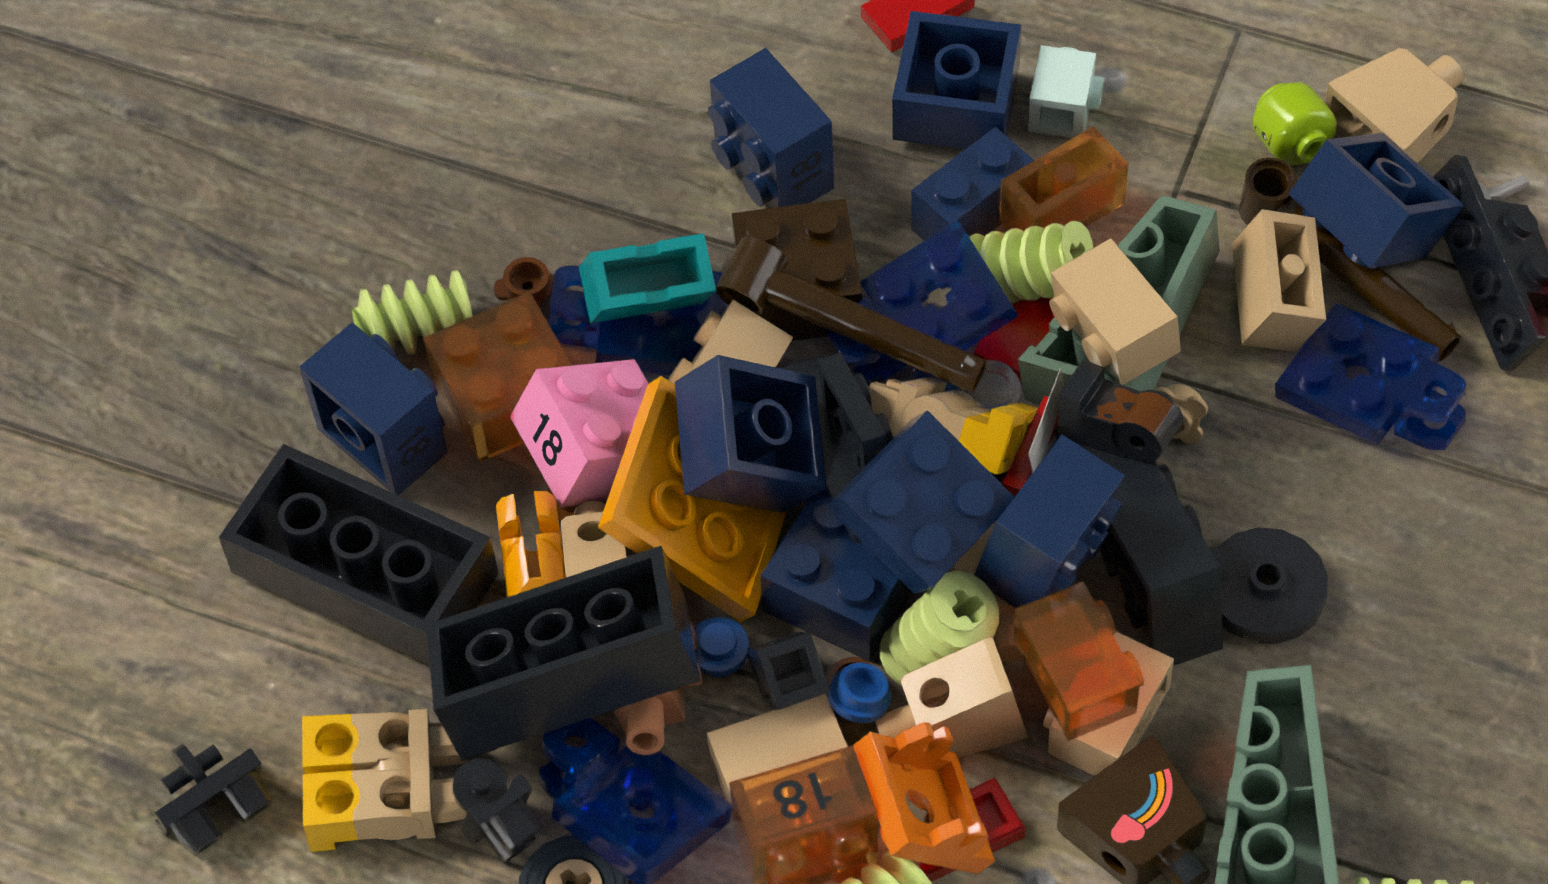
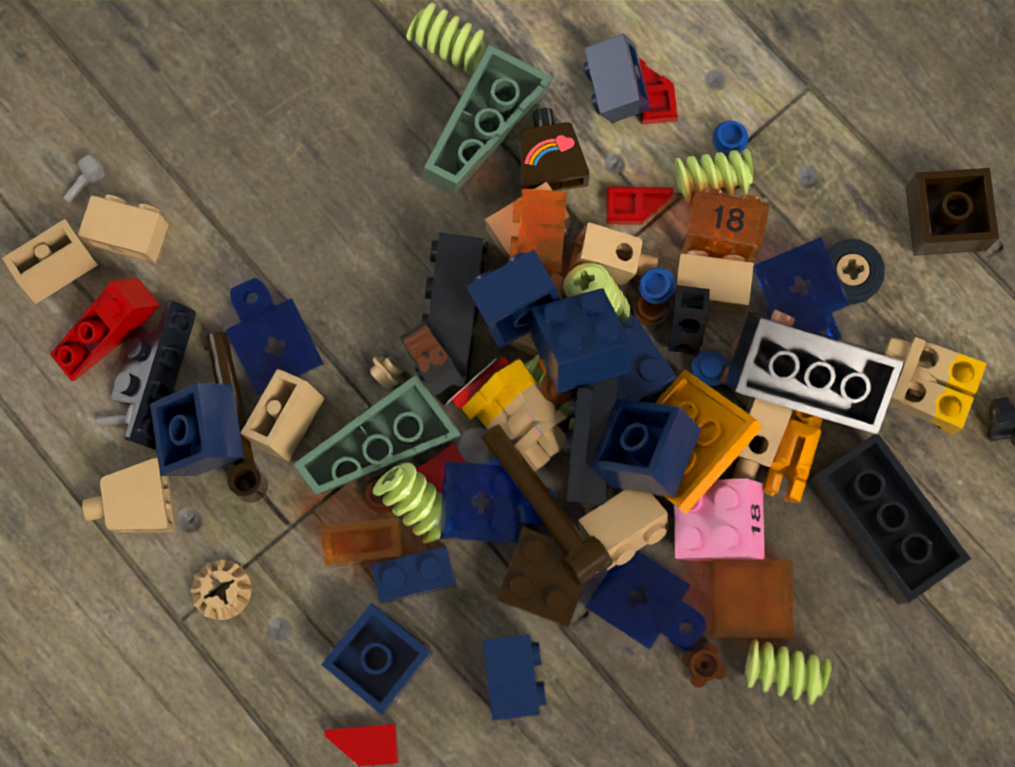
camera: 150 degrees left, 20 degrees up
(375, 408) = (841, 608): dark blue brick -> none
(494, 808) = (879, 319): black hips -> none
(647, 278) = (647, 595): teal brick -> none
(934, 781) = (651, 185): orange piece -> none
(1063, 91) = (315, 623): light aqua brick -> none
(1114, 312) = (397, 416): tan brick -> none
(1224, 93) = (237, 594): none -> tan gear
(1276, 610) = (399, 271): black plate -> none
(1293, 121) = (200, 521): lime head -> none

